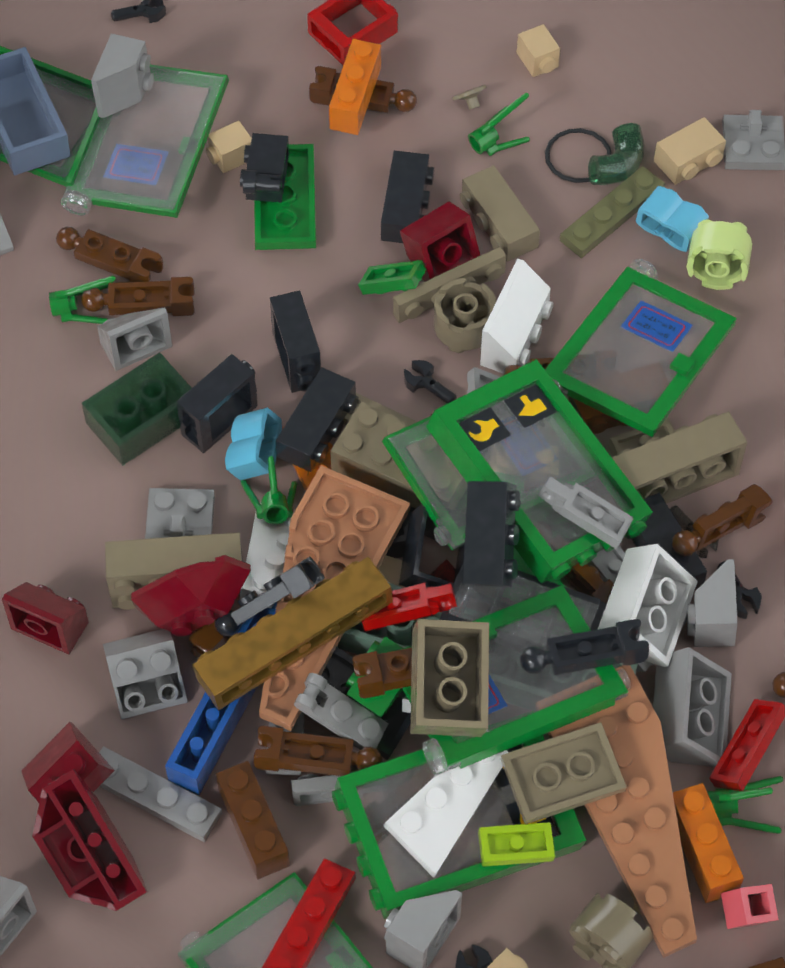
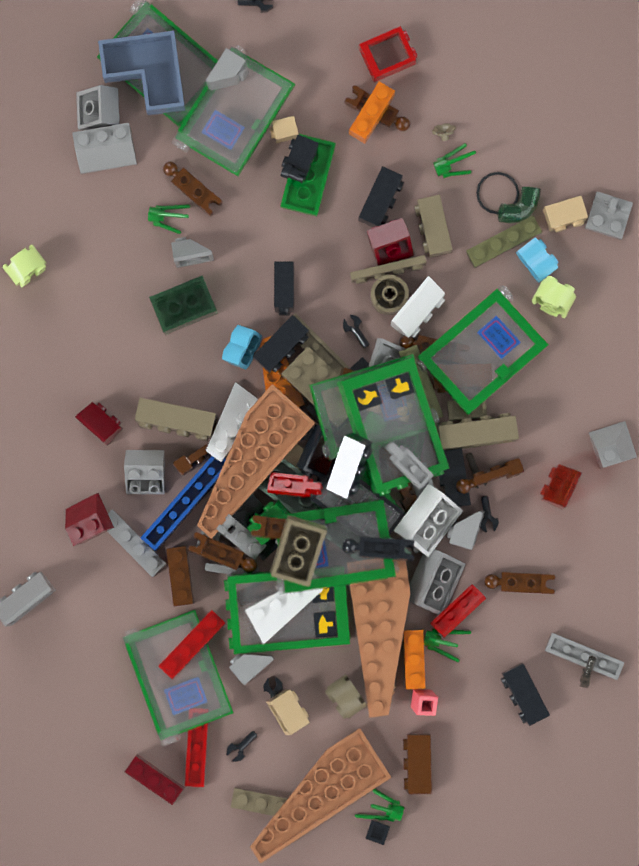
camera: 20 degrees right, 25 degrees up
(85, 845) = (89, 569): dark red wedge -> none
(143, 296) = (204, 225): reddish brown plate -> none
(179, 512) = (188, 380): light grey hinge -> none
(192, 594) = (177, 446): dark red wedge -> none
(216, 401) = (228, 315): black window -> none
(274, 505) = (242, 394): green plant -> none
(292, 632) = (226, 488): pearl gold brick -> none
(294, 581) = (222, 462): plate -> none
(392, 277) = (354, 256): green plate -> none
(516, 844) = (310, 639): lime plate -> none
(538, 50) = (497, 110): tan brick -> none
(563, 773) = (346, 610): dark tan plate -> none

